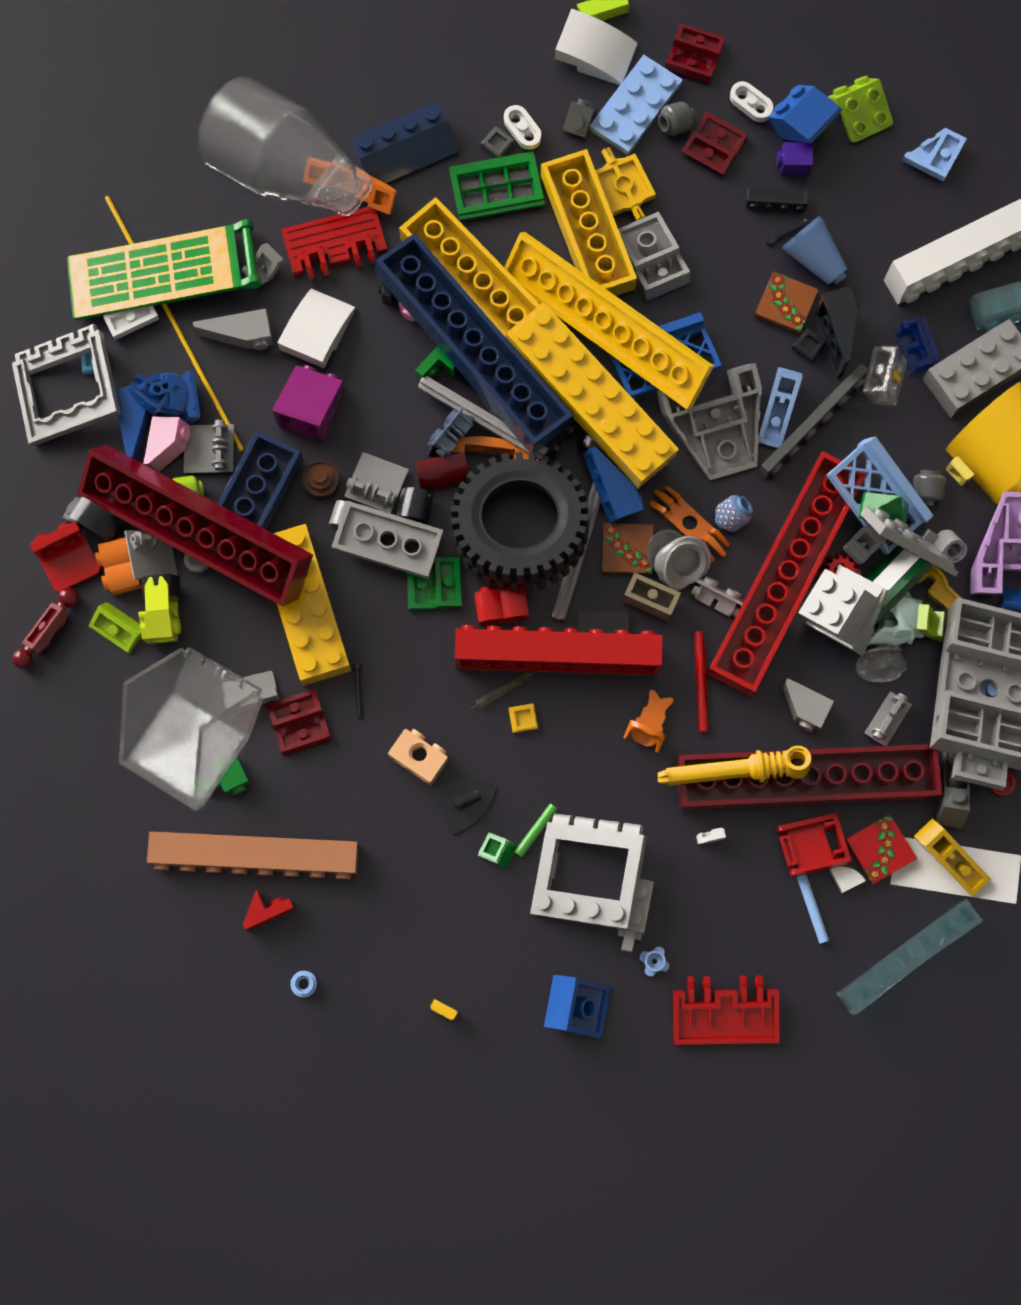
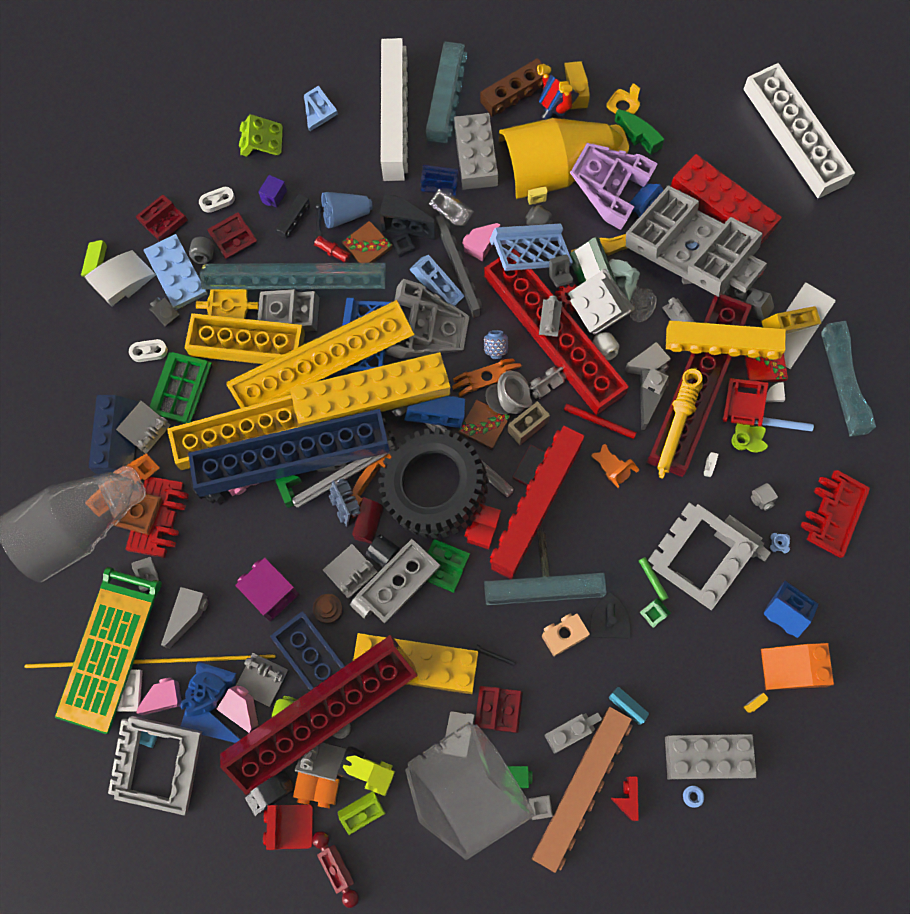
camera: 60 degrees left, 5 degrees down
(139, 353) = (161, 697): none -> bright pink slope
(212, 818) = (541, 807): none -> light grey tile
(310, 813) = (571, 731): none -> light grey hinge
(316, 328) = (213, 559): white slope -> none
(326, 225) = (141, 515): none -> dark orange tile
(355, 982) = (710, 757): none -> light grey brick
(372, 866) = (629, 706): none -> medium azure slope
(428, 171) = (143, 427): none -> light grey hinge
(460, 708) = (545, 589): none -> clear light blue brick
(497, 142) = (148, 373): dark grey tile -> none
(509, 1040) = (797, 666): none -> orange slope
(523, 718) = (570, 550): yellow tile -> none
(698, 239) = (294, 276): none -> clear light blue brick
(701, 918) = (764, 497): none -> light grey plate
(758, 265) = (332, 249): none -> red pin
(769, 726) = (649, 399): none -> dark grey slope
(772, 873) = (751, 437): none -> lime plate
(779, 721) = (655, 381): none -> light grey plate
(795, 558) = (550, 317): none -> light grey hinge
(799, 643) = (606, 345): none -> white head
(803, 114) = (247, 170): blue slope -> none
(857, 427) = (478, 241): none -> bright pink slope
(874, 779) = (725, 339): none -> yellow brick
(891, 504) = (544, 249): green slope -> none
(931, 622) = (632, 258): lime slope -> none
(939, 549) = (583, 230): light grey hinge -> none

